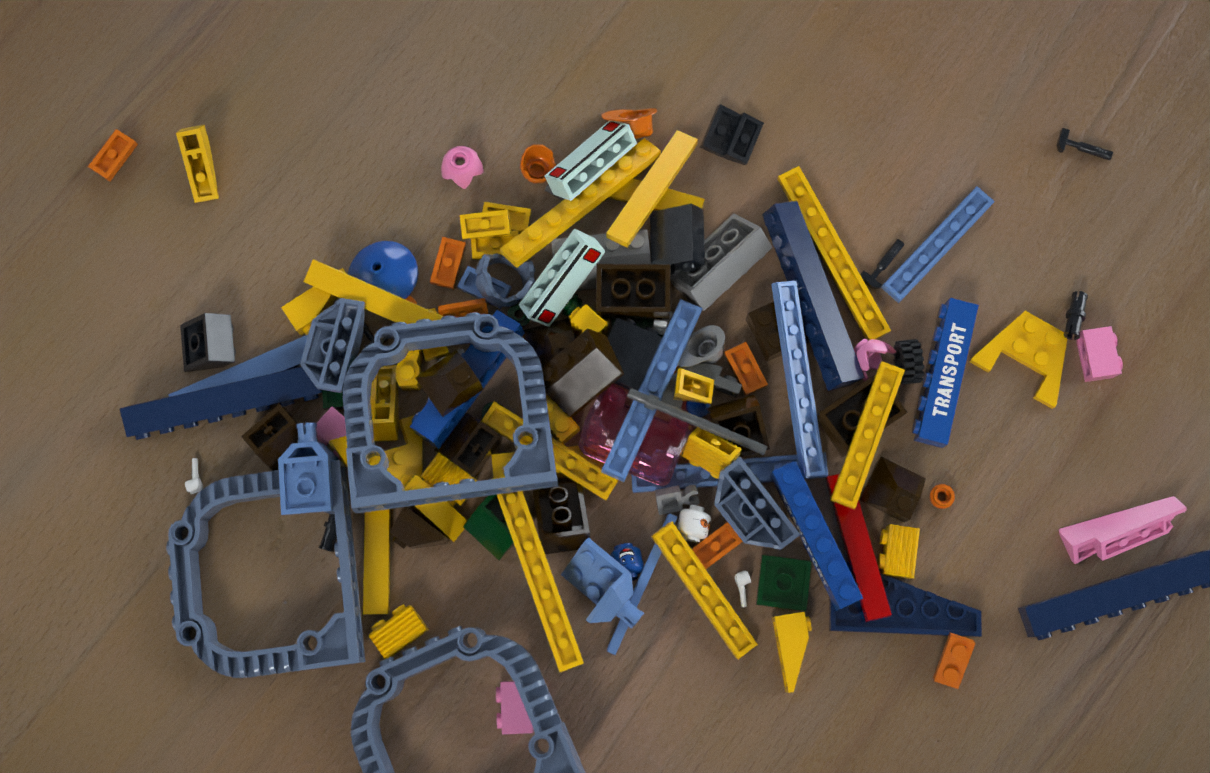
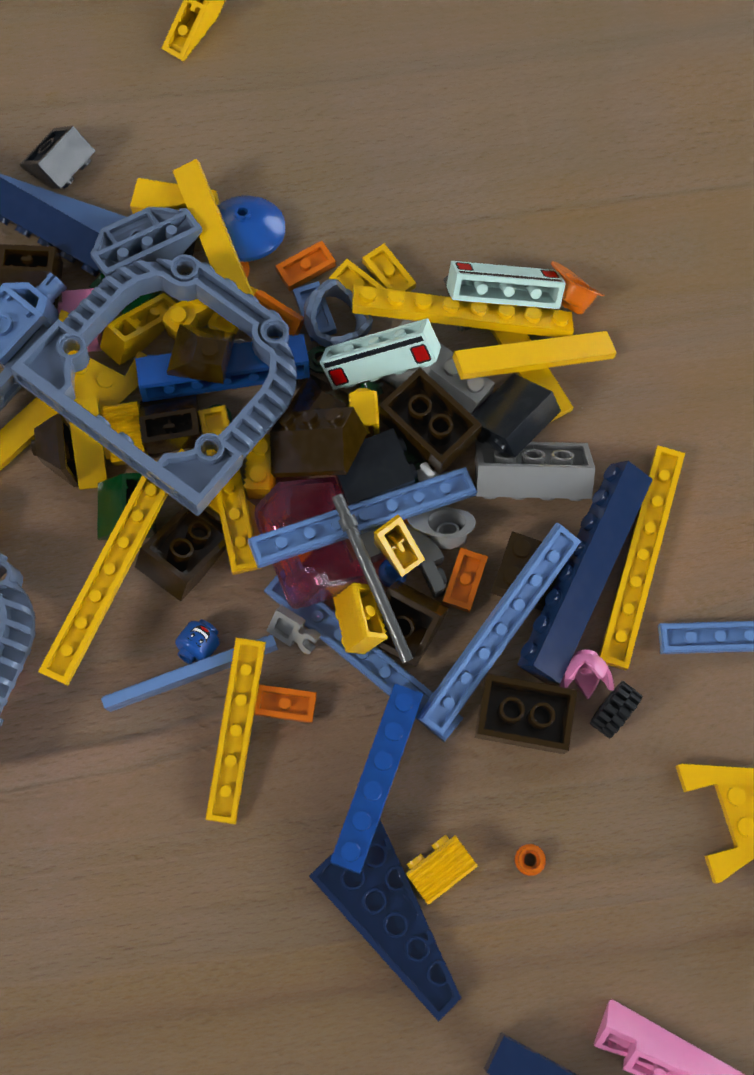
camera: 45 degrees right, 5 degrees down
(461, 174) = (400, 206): bright pink piece -> none
(485, 224) = (364, 259): yellow plate -> none
(536, 163) = (458, 246): orange hair -> none
(604, 583) = (158, 640): medium blue plate -> none
(694, 523) = (285, 665): white head -> none
(732, 135) = (651, 377): black slope -> none
(741, 579) = (279, 754): white hand -> none
(751, 508) = (347, 699): sand blue wedge -> none
(783, 583) = (311, 793): dark green plate -> none
(791, 641) = (266, 850): yellow slope -> none
(861, 557) = (406, 828): red tile -> none
(867, 435) = (511, 734): yellow tile -> none
(871, 280) = (677, 607): black piece -> none
(893, 490) = (492, 810): dark brown slope -> none
(945, 373) = (642, 753): blue brick -> none
(954, 660) = (391, 1017): orange plate -> none

